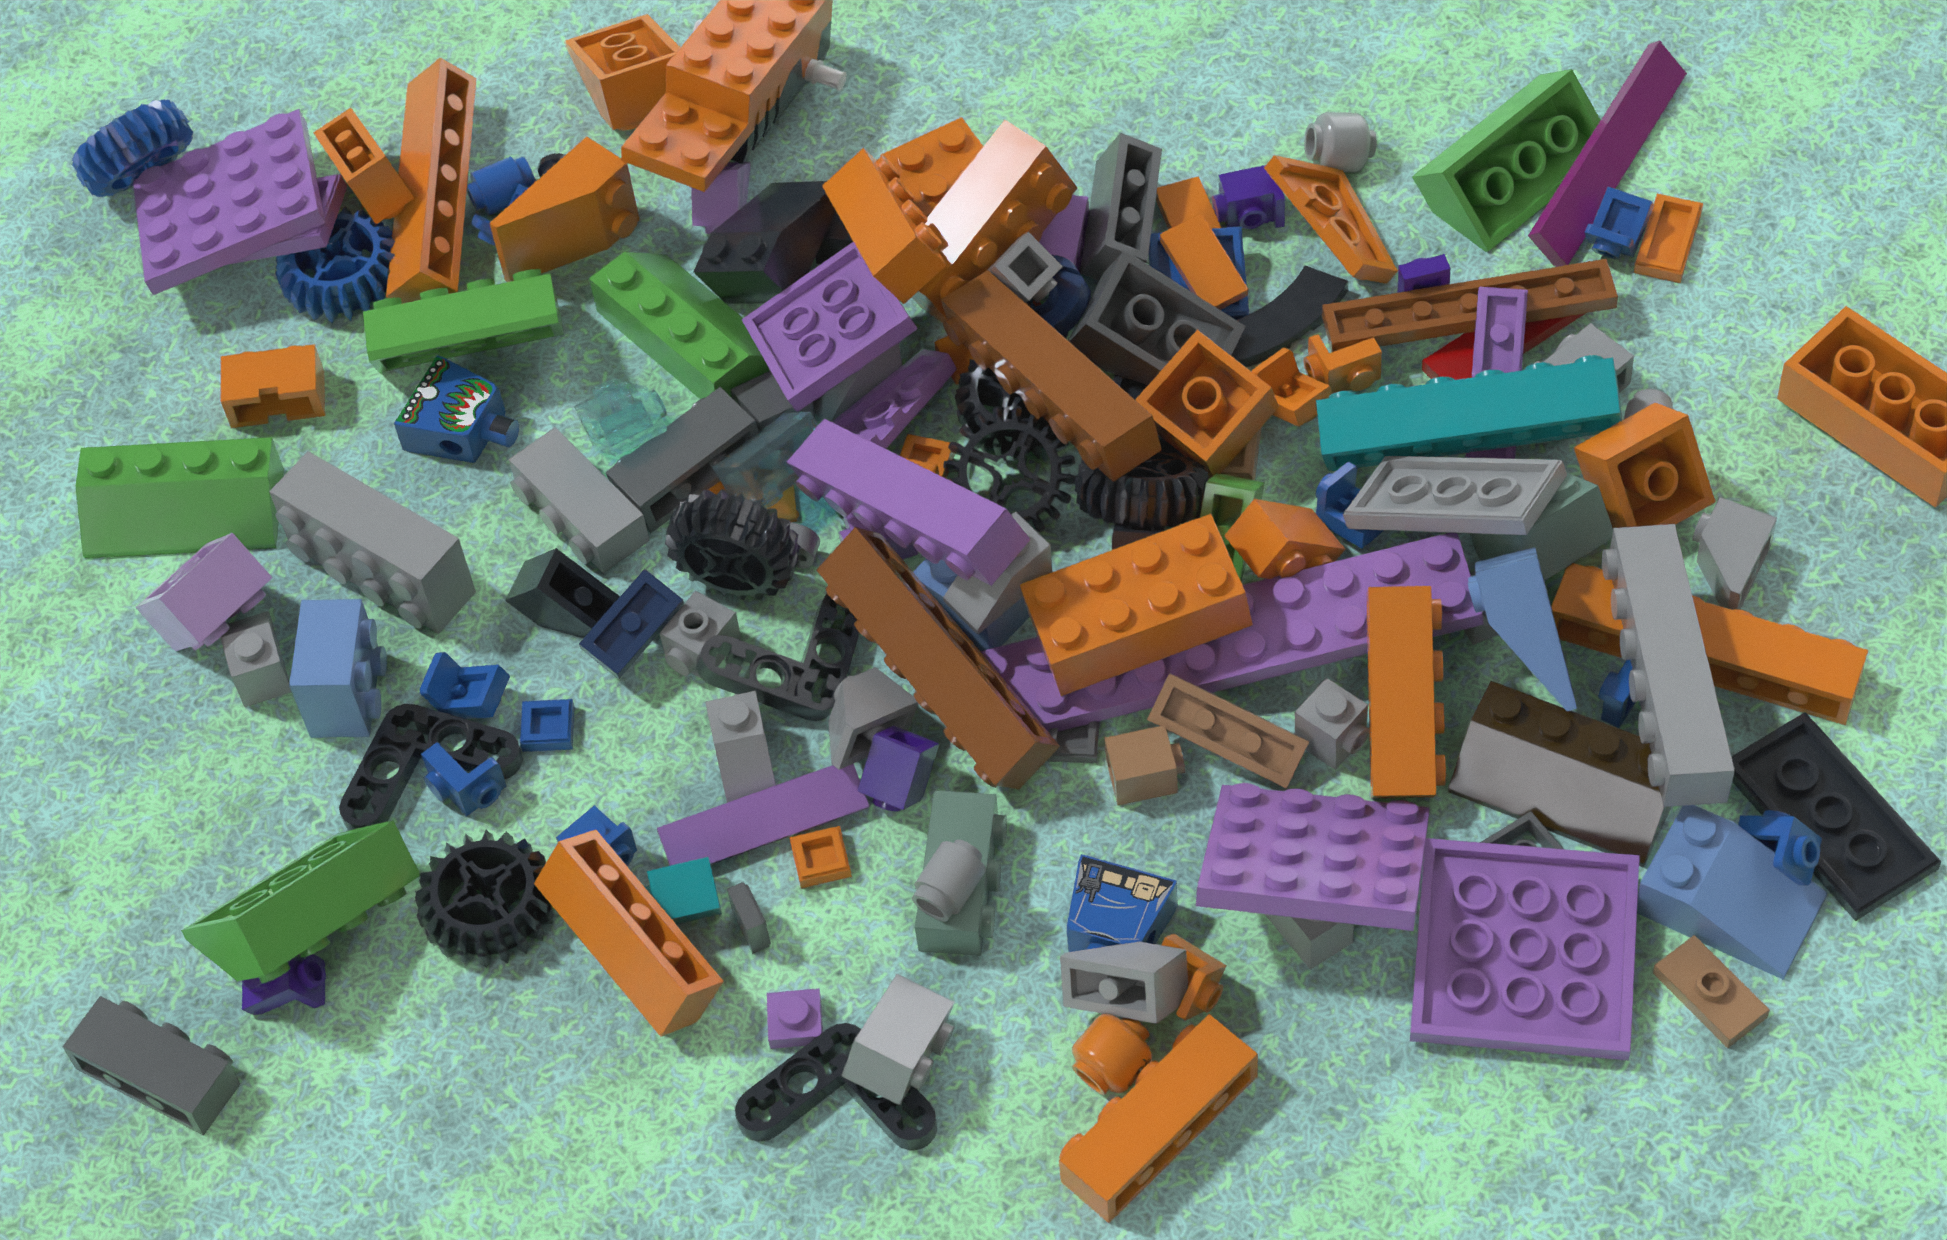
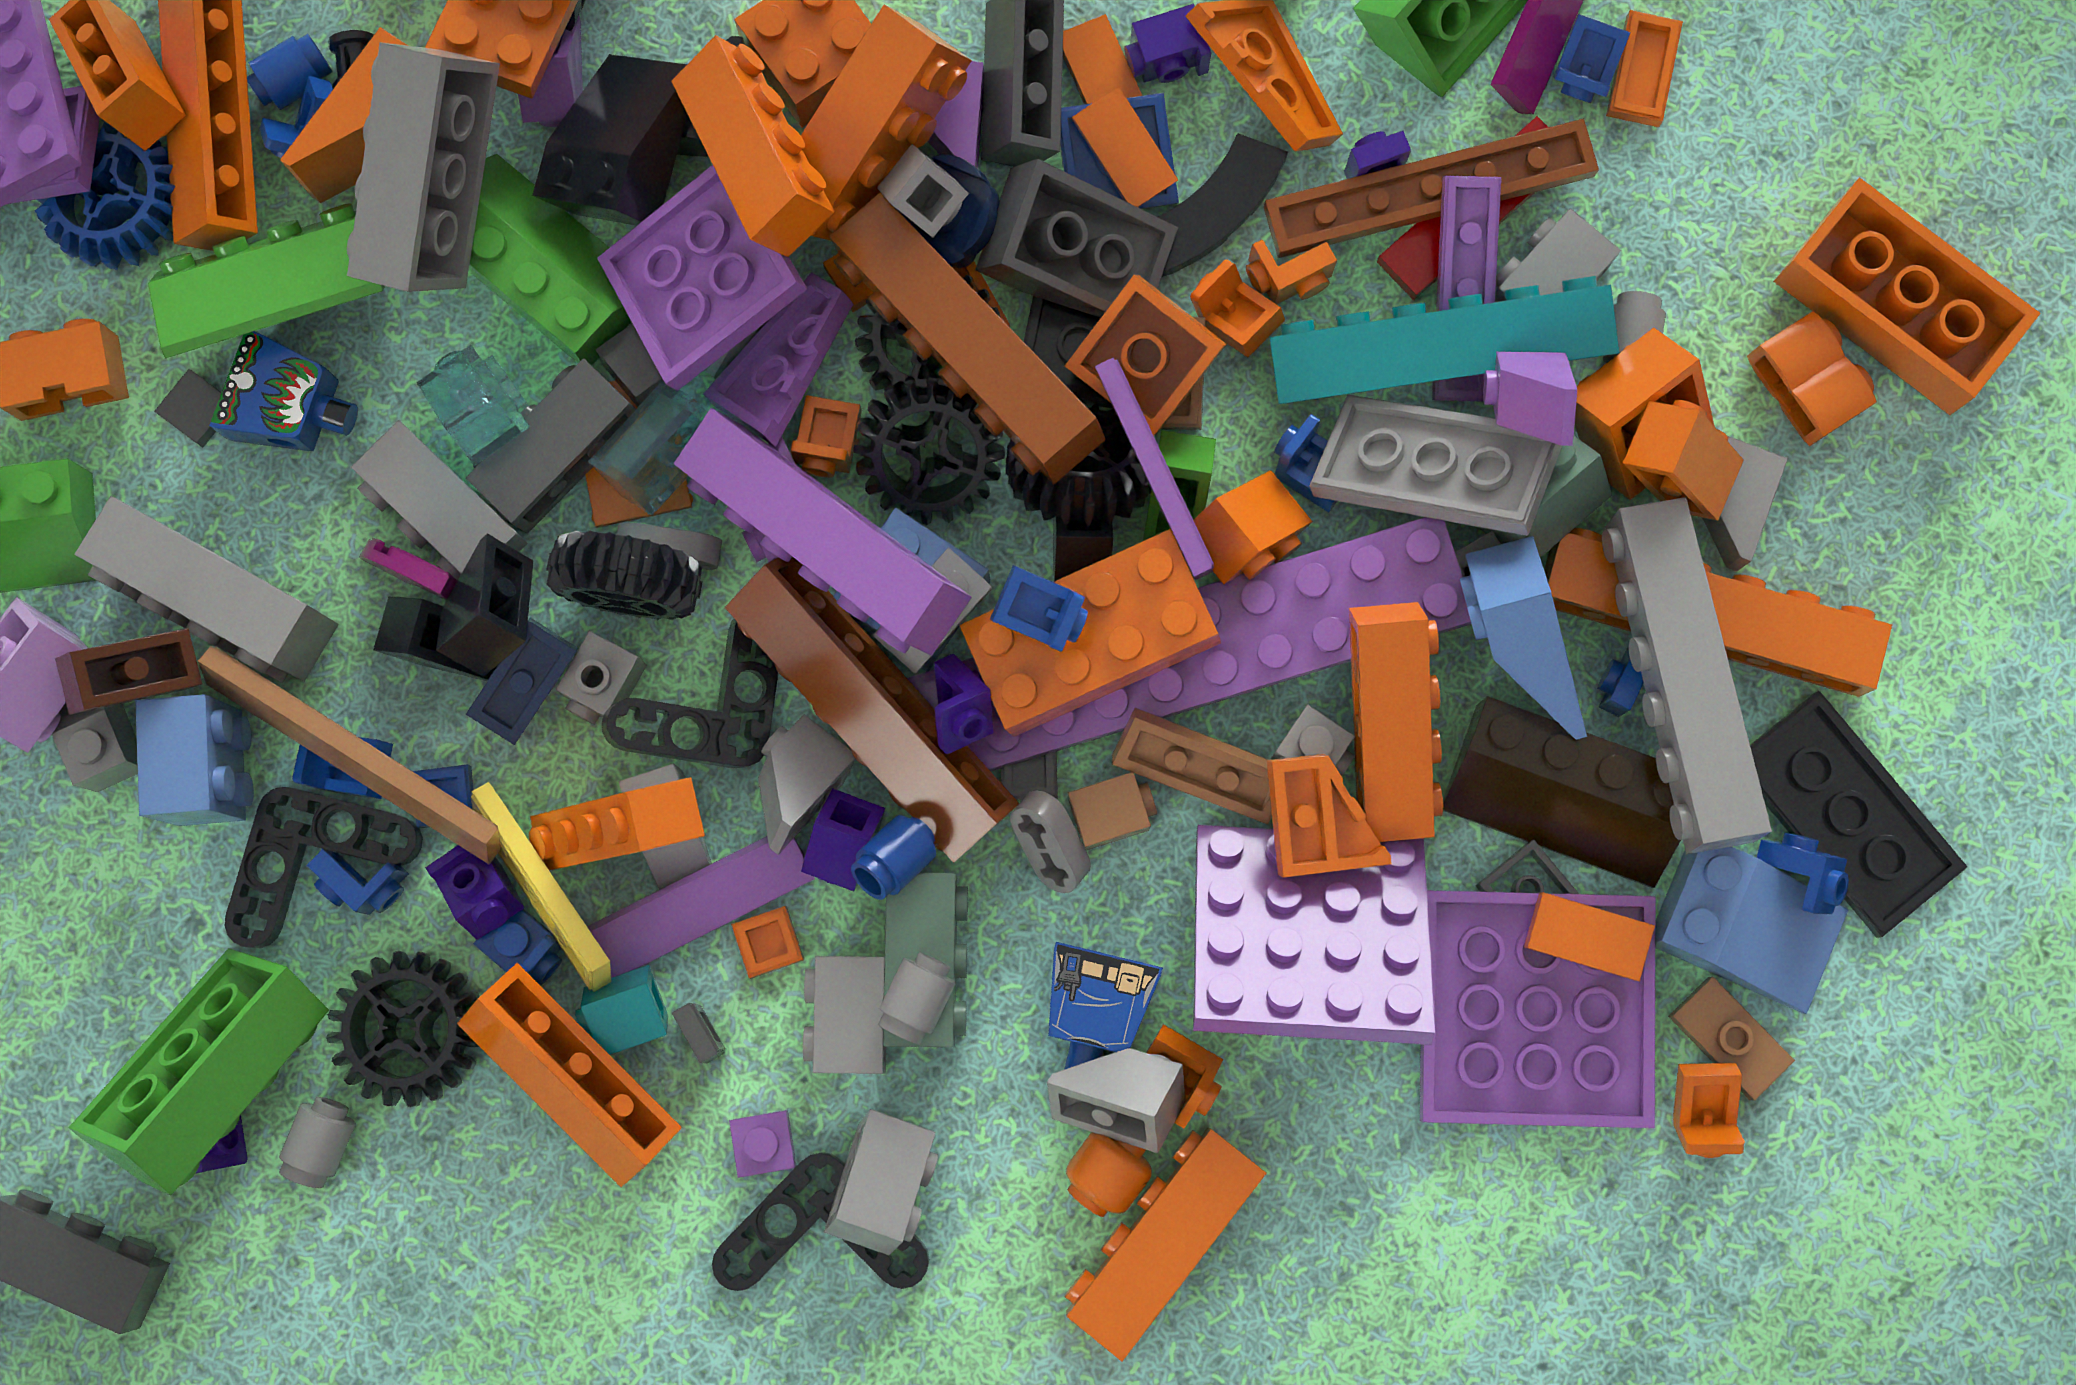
camera: 10 degrees left, 25 degrees up
(283, 574) = (128, 671): none -> reddish brown brick
(376, 423) = (191, 407): none -> dark grey tile
(391, 984) = (316, 1142): none -> light grey brick
(478, 663) = (350, 754): none -> medium nougat tile
(545, 531) = (408, 568): none -> magenta tile
(565, 786) = (475, 891): none -> dark purple brick
(608, 222) = (421, 168): none -> light grey brick
(609, 563) = (487, 607): none -> black slope
(624, 785) = (544, 891): none -> light yellow tile
(699, 715) = (617, 825): none -> orange brick
(883, 913) = (846, 1015): none -> light grey brick
(941, 768) = (894, 856): none -> blue brick
(1015, 652) = (962, 706): none -> dark purple bracket
(1085, 780) = (1050, 841): none -> light grey beam
(1088, 557) = (1040, 609): none -> blue bracket
(1202, 471) = (1155, 468): none -> medium lavender tile
(1327, 764) = (1318, 820): none -> orange wing
(1537, 433) = (1533, 394): none -> medium lavender slope
(1573, 879) = (1589, 936): none -> orange tile
(1672, 488) = (1684, 456): none -> orange brick
(1683, 1038) = (1708, 1109): none -> orange bracket
(1807, 468) = (1813, 377): none -> orange brick

